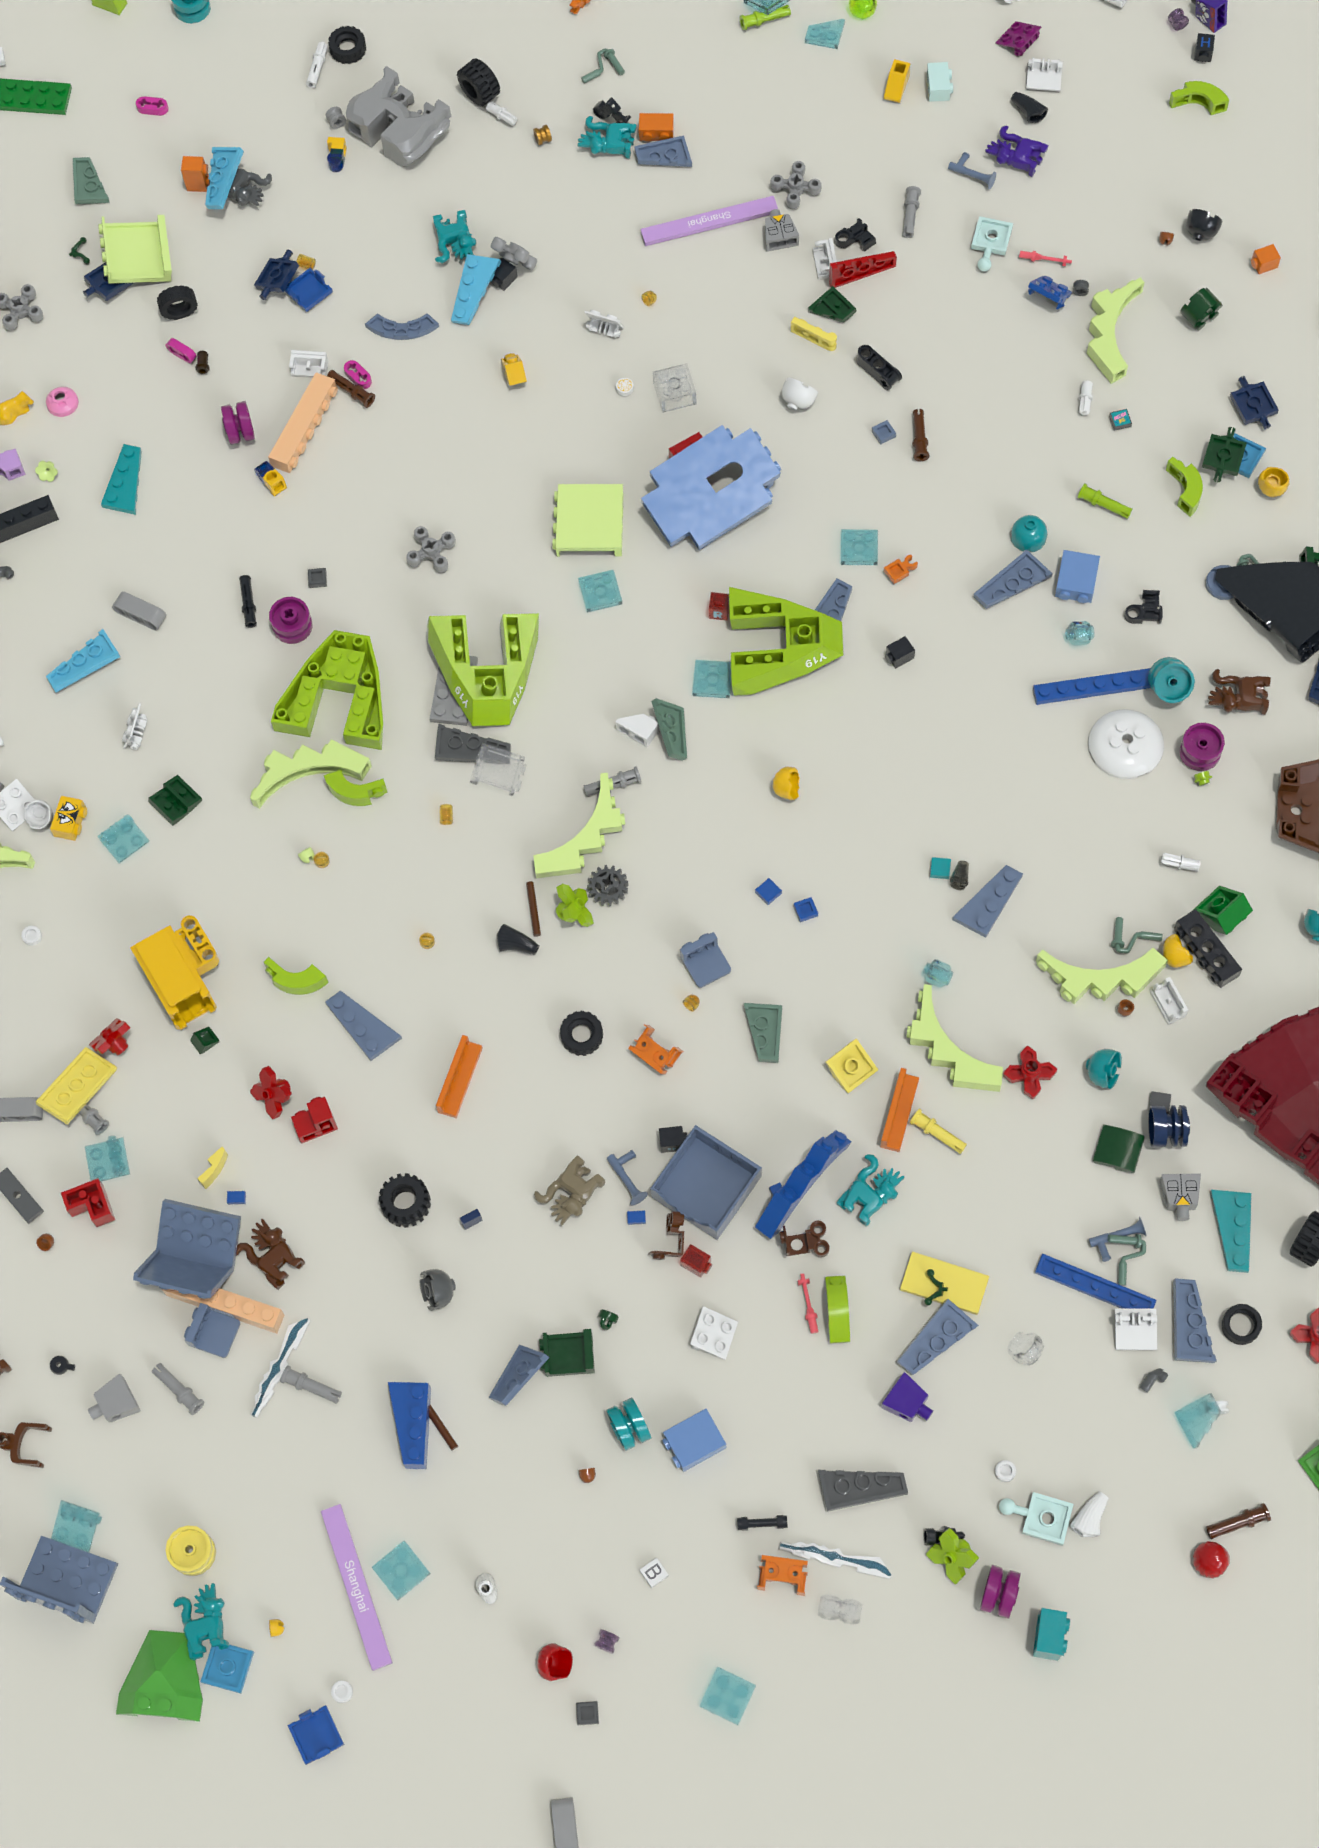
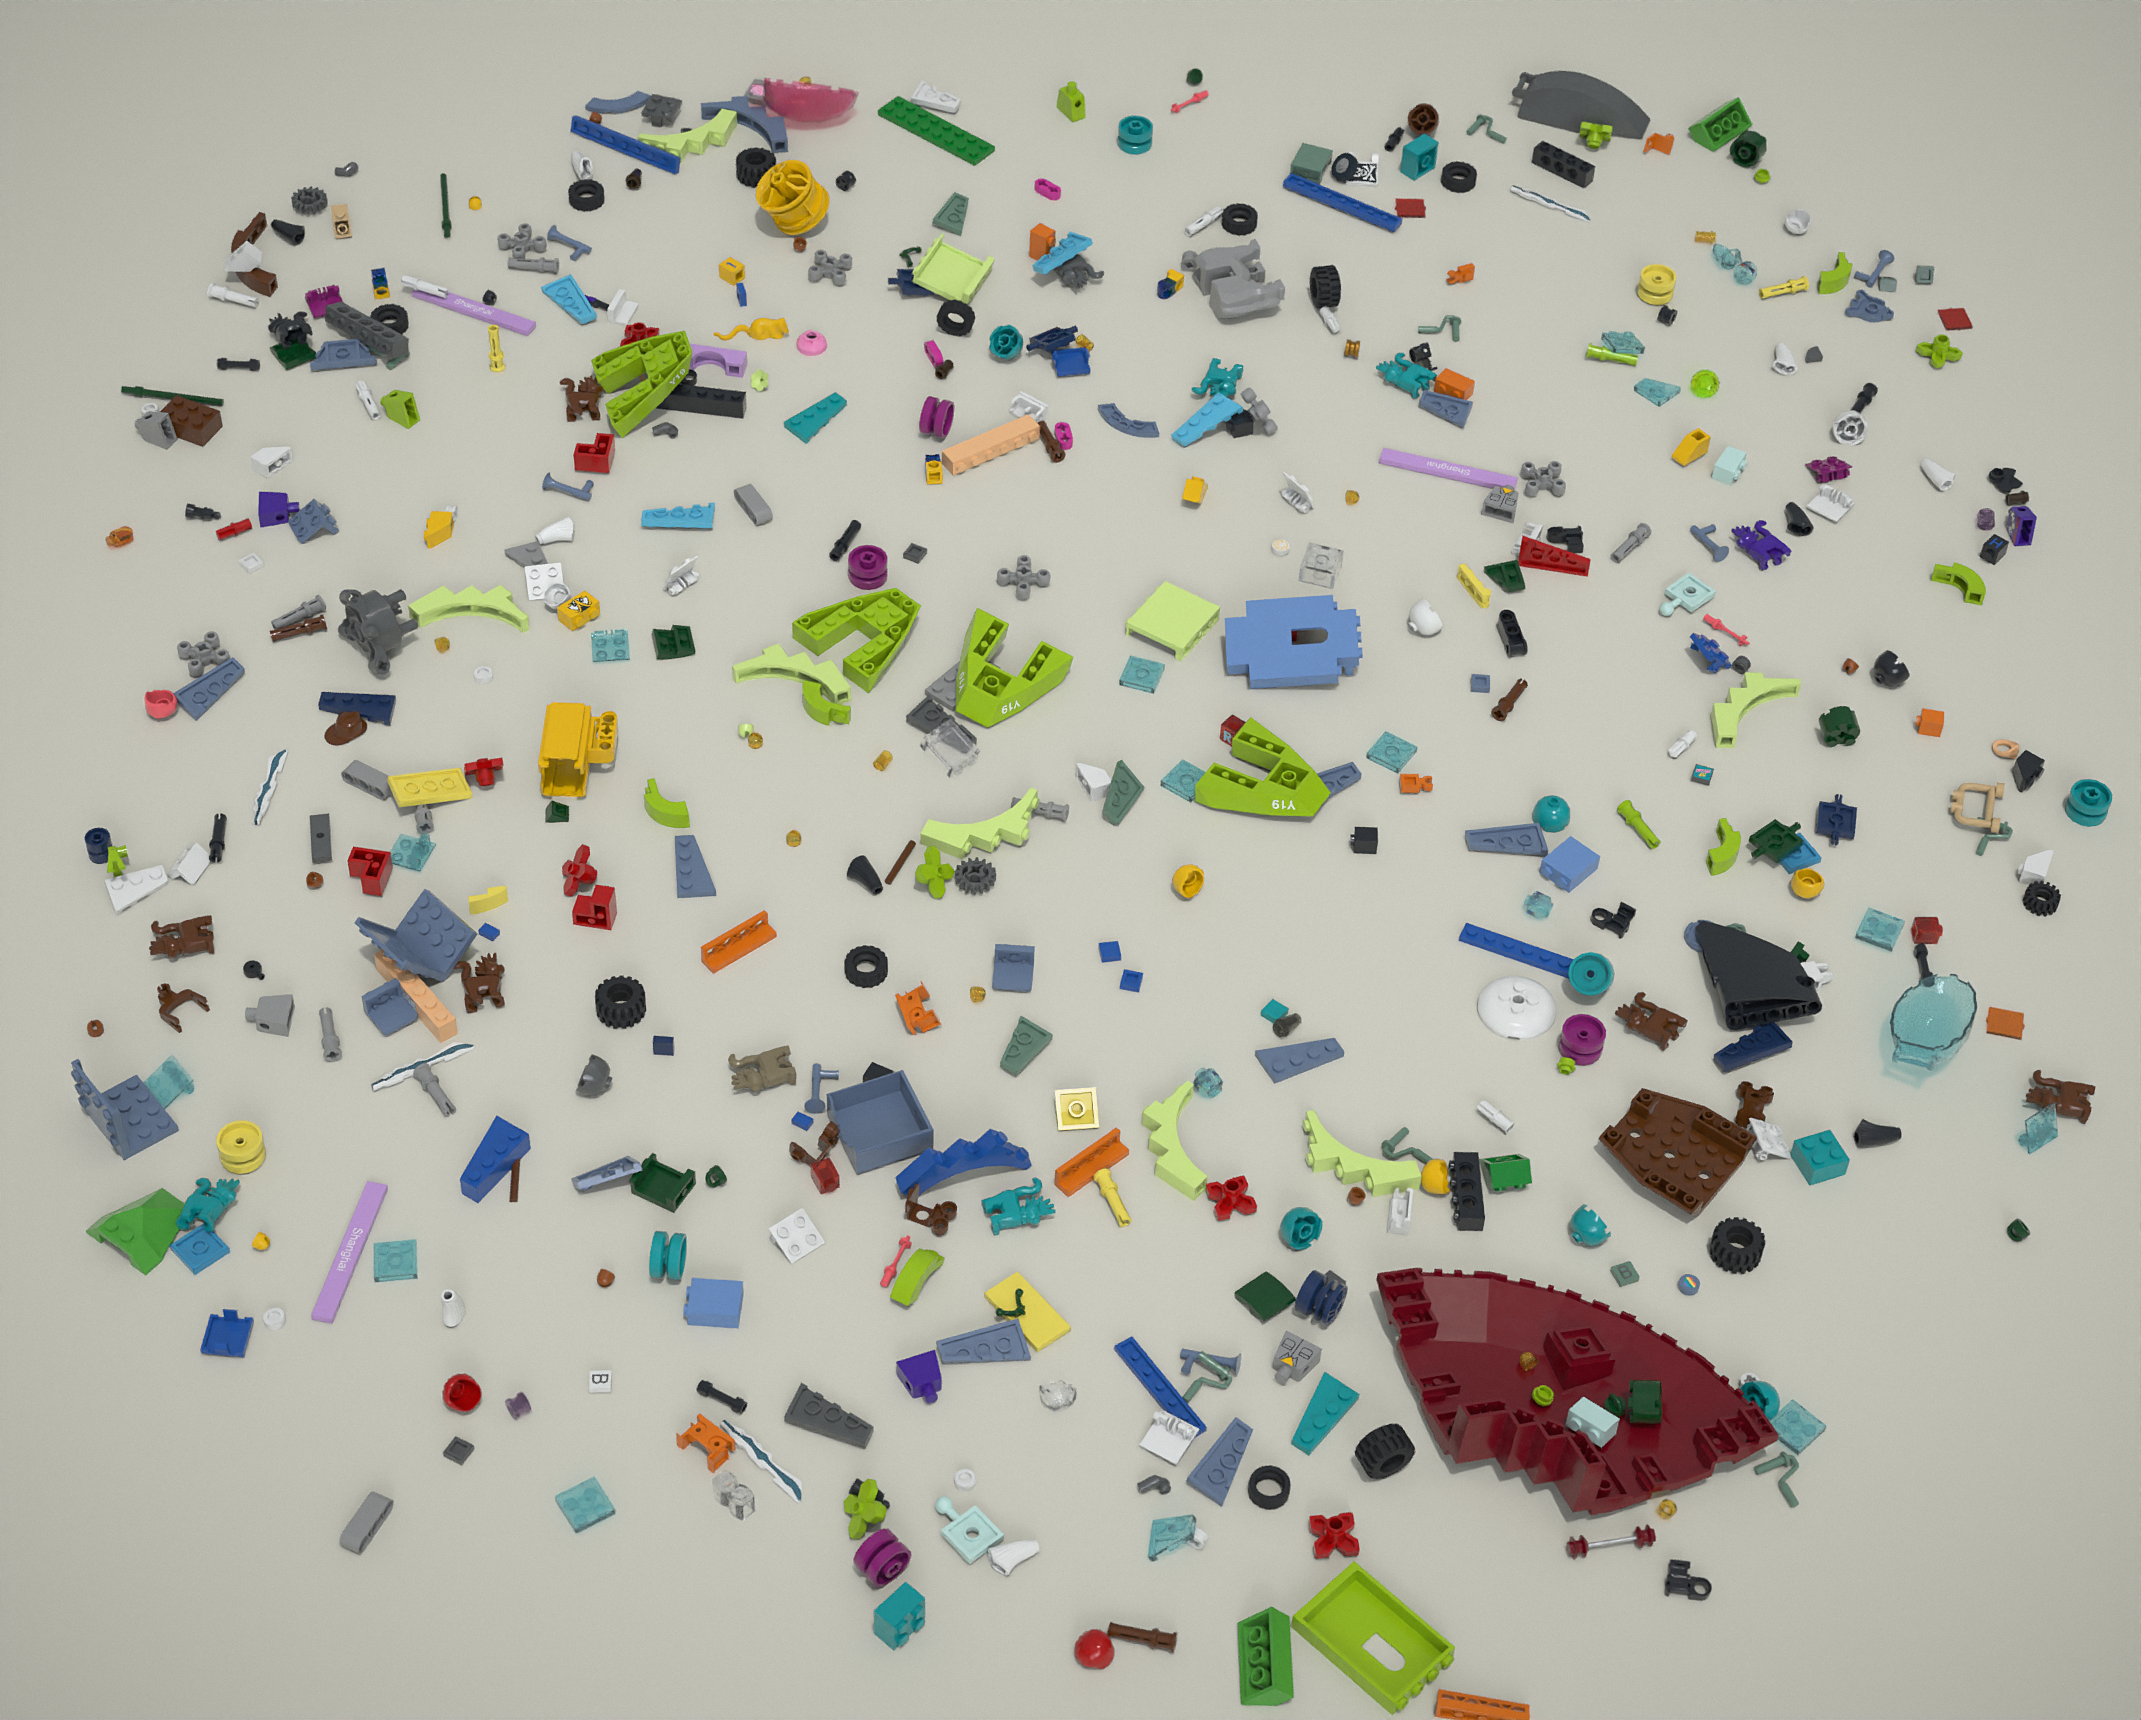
camera: 25 degrees right, 20 degrees down
(240, 303) = (1006, 342): none -> teal cylinder

